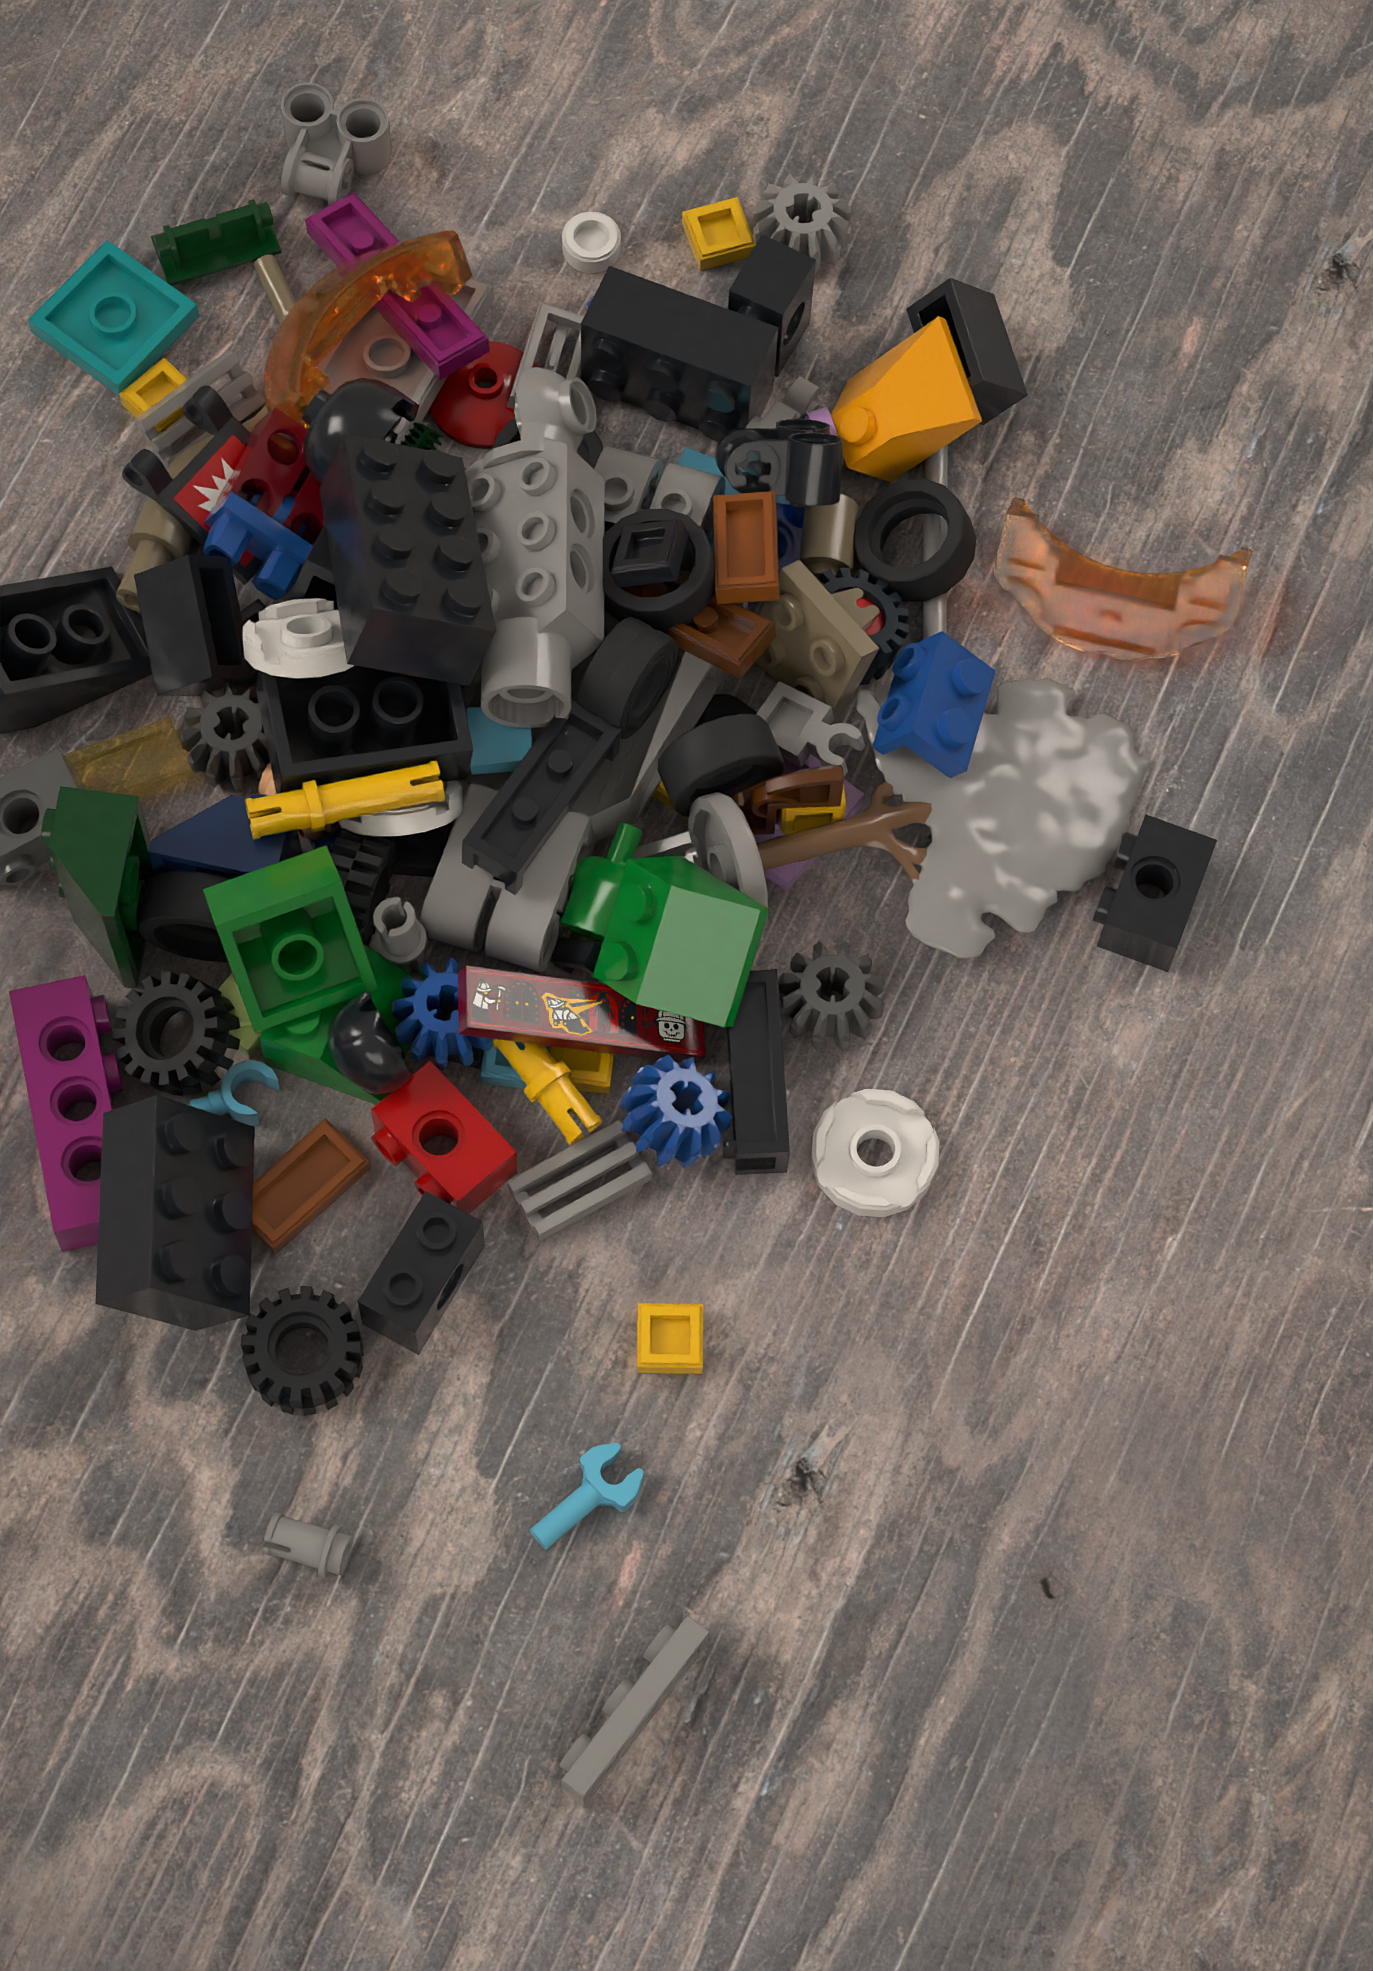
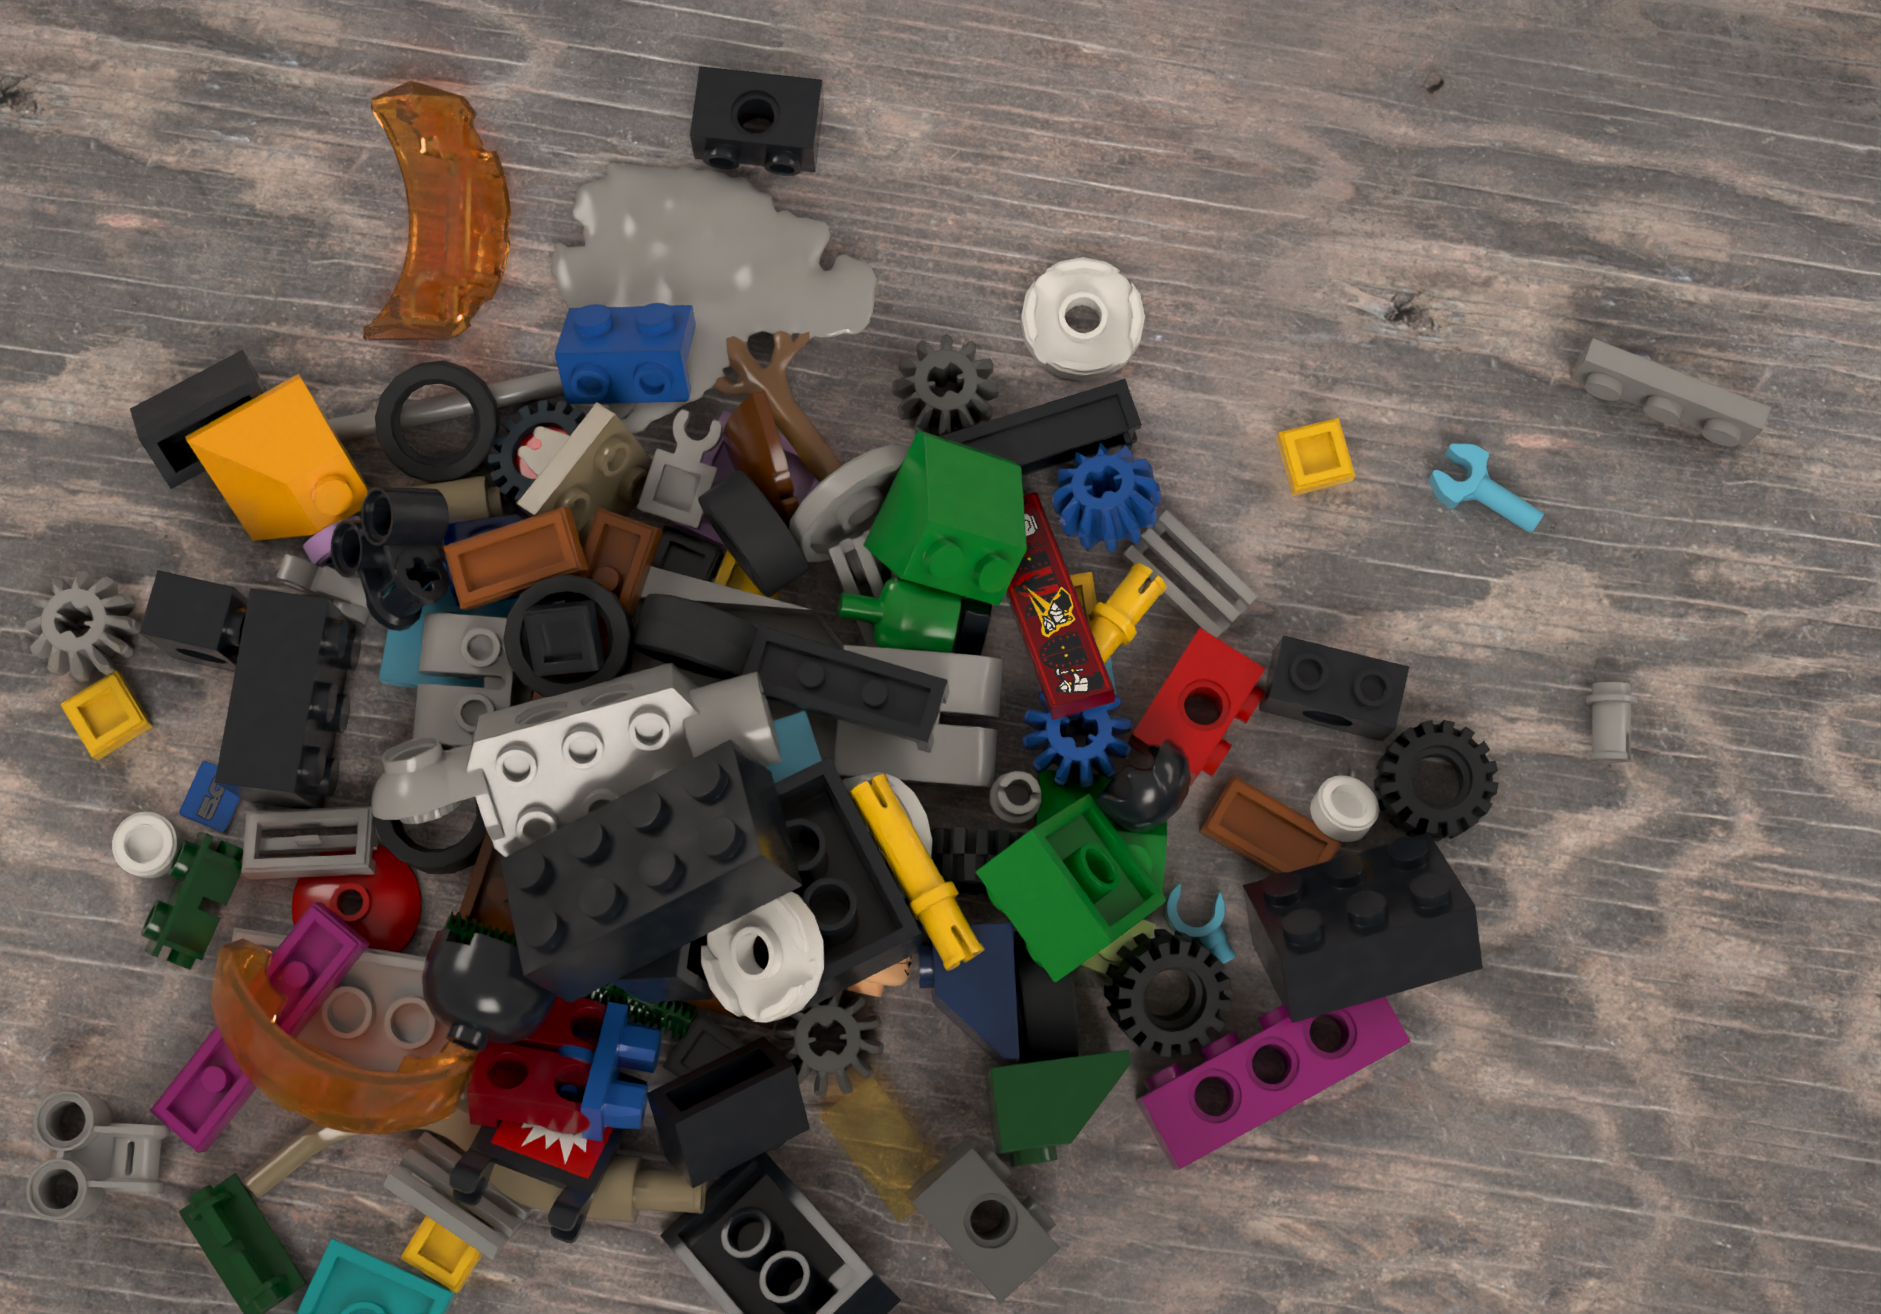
camera: 105 degrees left, 10 degrees up
(302, 1255) = (1344, 808): none -> white tile
(510, 248) = (179, 921): none -> dark green hinge

